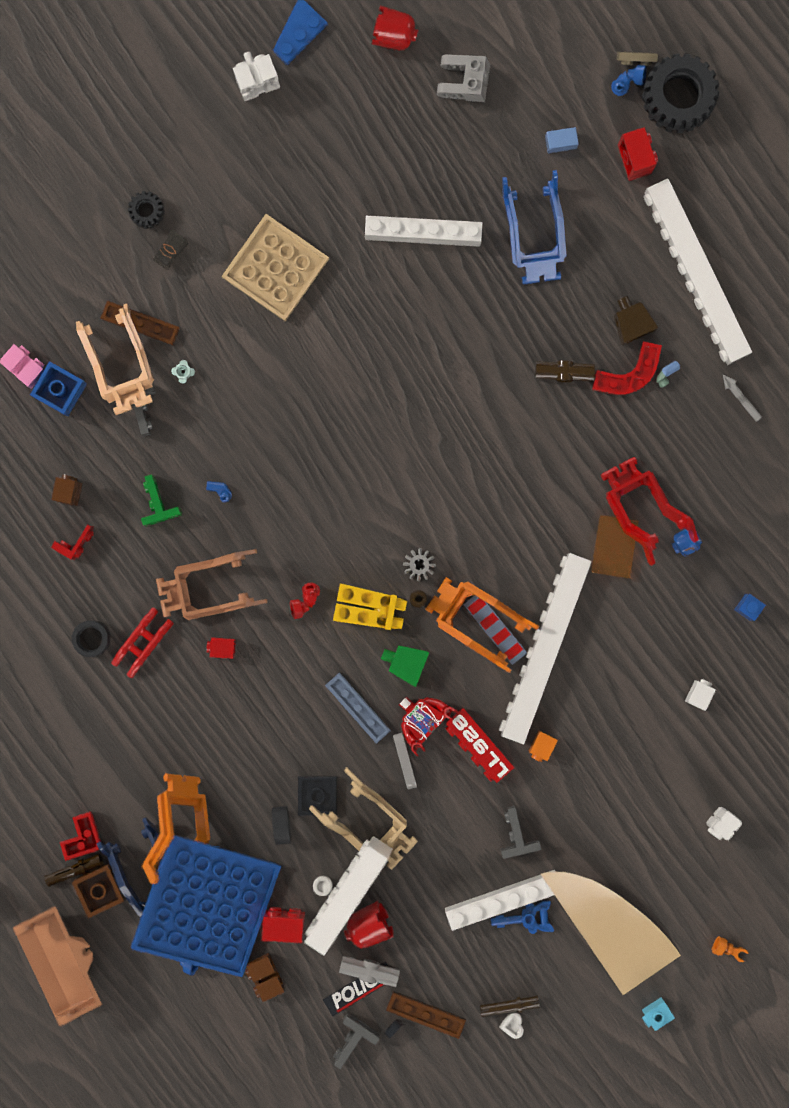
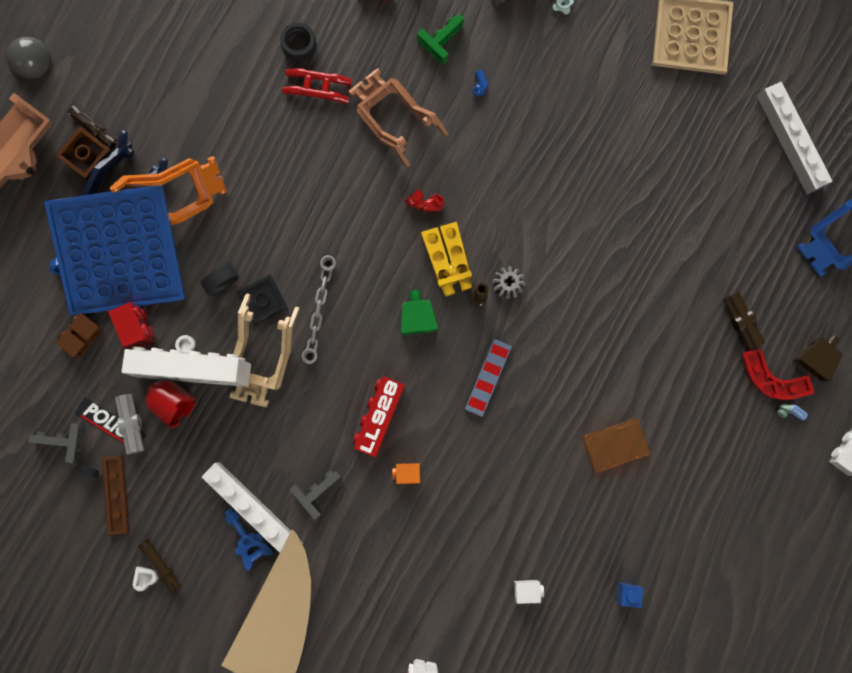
camera: 55 degrees right, 5 degrees down
(86, 840) = (129, 121): red brick -> none
(221, 647) = (347, 152): red brick -> none
(349, 746) = (329, 269): none -> light grey piece
(358, 708) = (356, 295): sand blue tile -> none
(404, 761) = (330, 359): light grey beam -> none
(422, 719) = (375, 355): red torso -> none
(451, 601) = (490, 326): orange piece -> none
(545, 648) = (495, 430): white brick -> none
(630, 479) = (684, 428): red piece -> none
(684, 545) = (656, 507): blue head -> none
(731, 384) = (814, 472): light grey piece -> none

